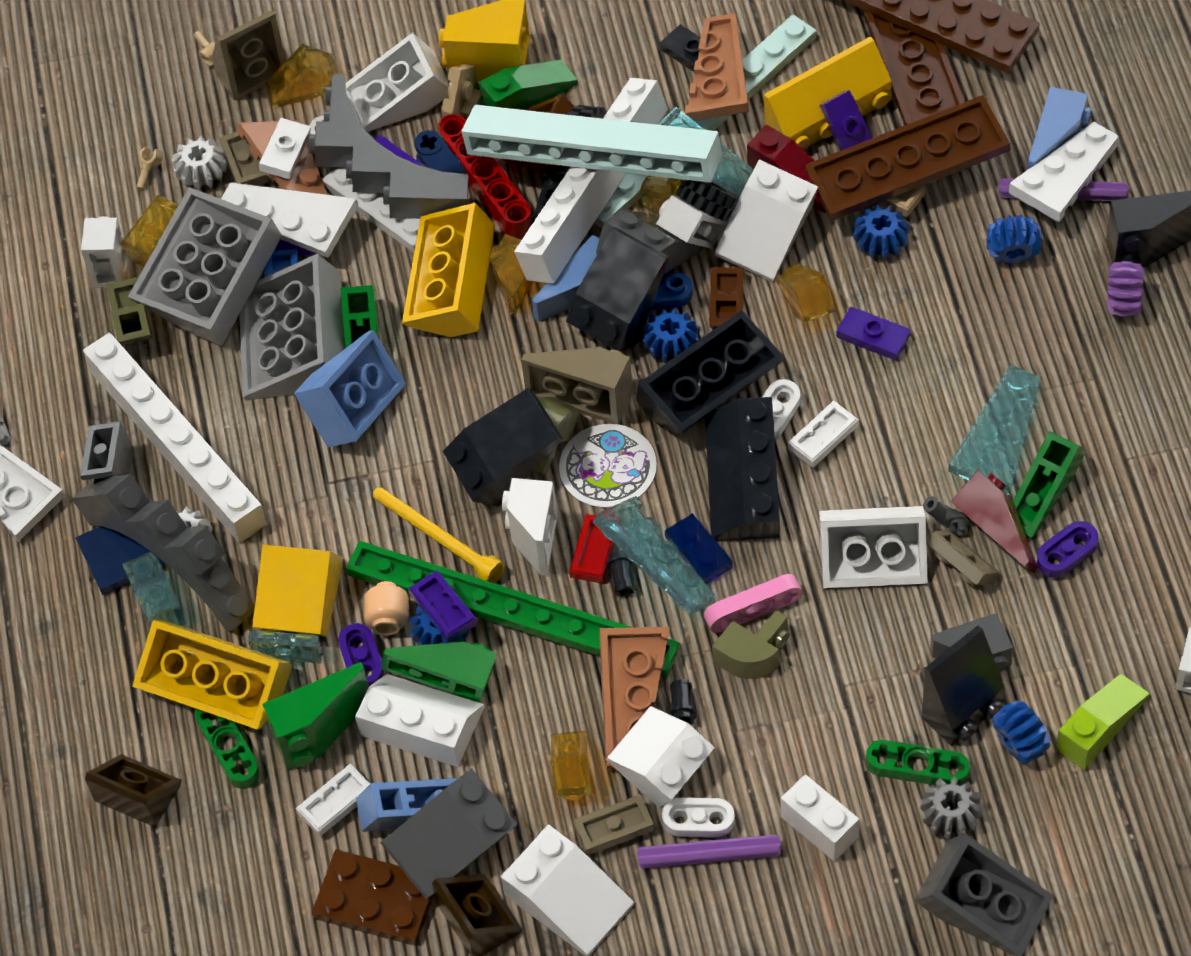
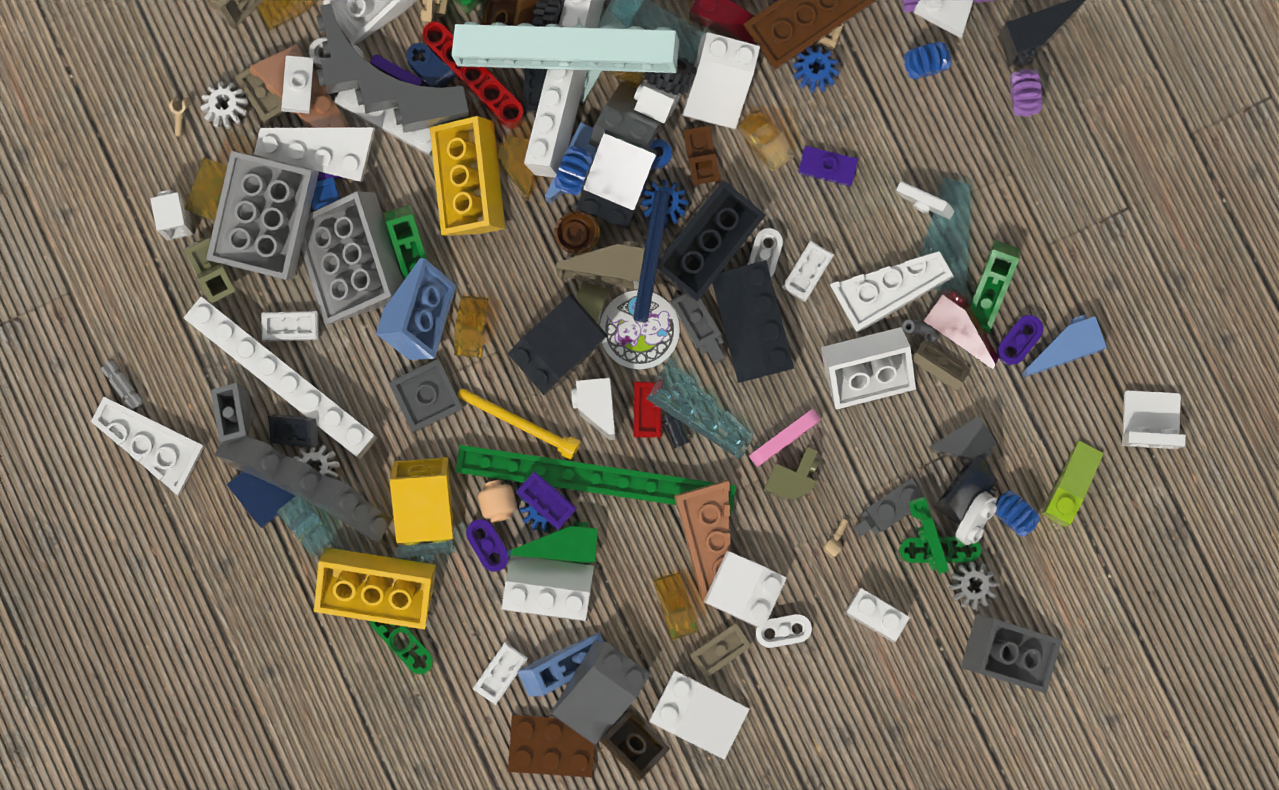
camera: 20 degrees left, 25 degrees up
(132, 788) = (340, 694): dark brown slope -> none
(175, 486) = (293, 430): none -> black plate
(202, 389) = (290, 326): none -> white plate
(315, 715) = (466, 616): green slope -> none
(335, 486) = (425, 395): none -> dark grey plate
(408, 424) = (471, 326): none -> clear yellow slope
(559, 338) = (576, 232): none -> reddish brown hair
(568, 268) = (573, 170): none -> blue gear
(636, 371) = (651, 256): none -> dark blue axle
(679, 468) = (699, 326): none -> dark grey hinge
(682, 701) = (749, 536): black pin -> none
(699, 548) = (730, 394): clear blue plate -> none
(709, 851) = (797, 656): medium lavender axle -> none
(783, 735) = (832, 547): none -> tan hand
(865, 707) = (889, 509): none -> dark grey hinge
(904, 732) = (936, 559): none -> green hinge
(907, 468) = (882, 292): none -> white wing
(968, 722) = (975, 519): none -> white plate
(980, 378) = (924, 201): none -> white plate
(1129, 563) = (1074, 342): none -> medium blue slope

